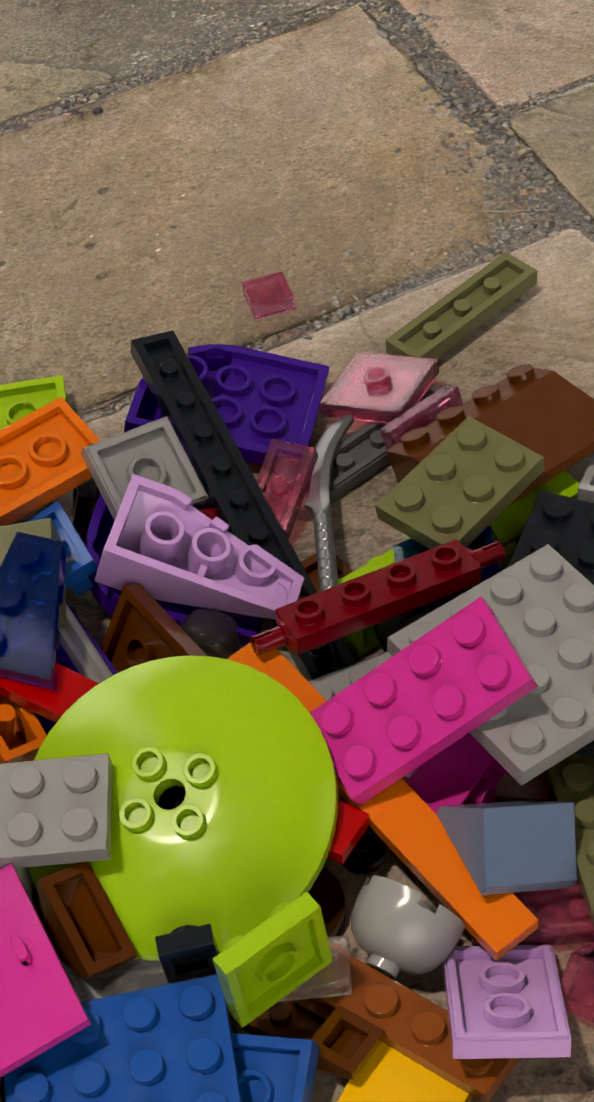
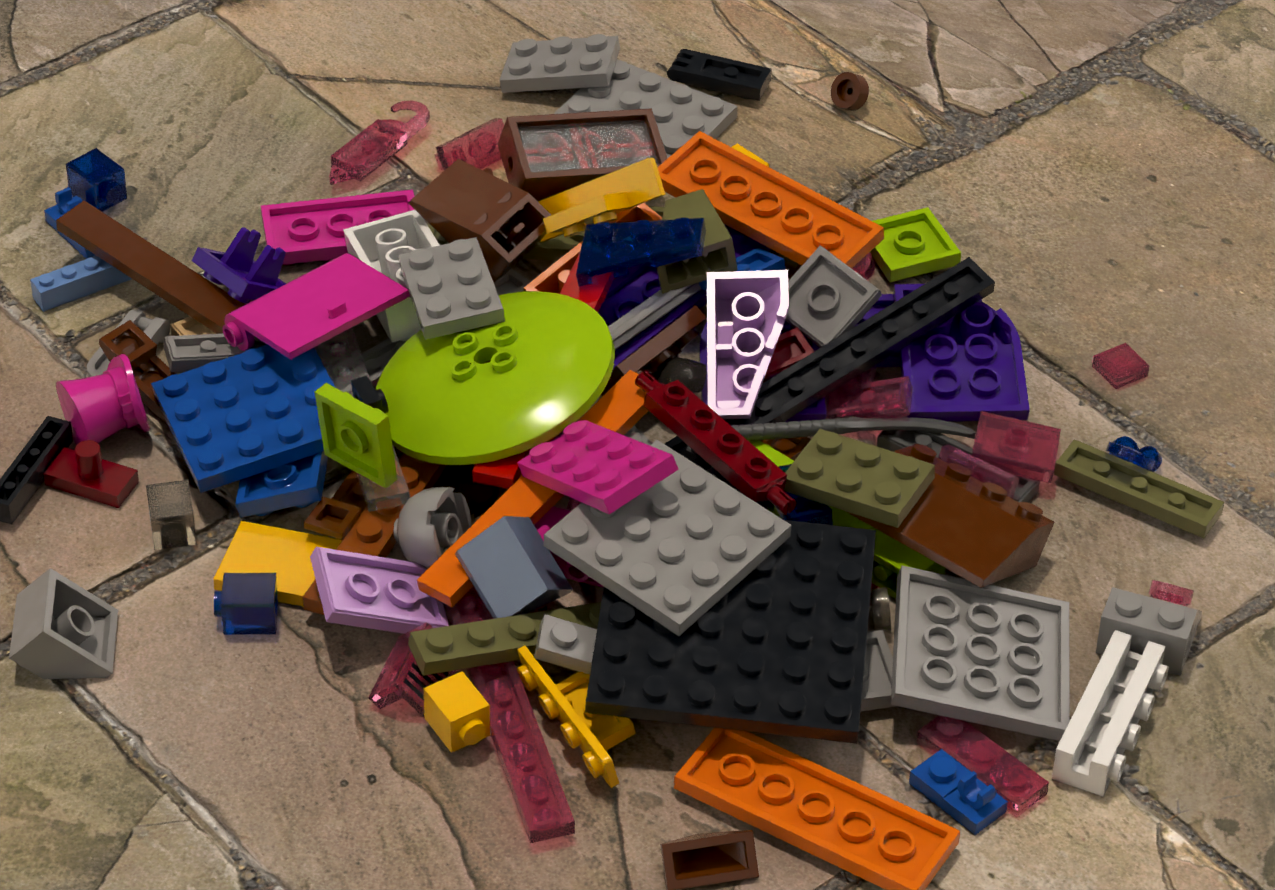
camera: 70 degrees right, 5 degrees down
(82, 921) = (386, 348): reddish brown slope -> none
(415, 302) = (1128, 450): none -> clear blue piece

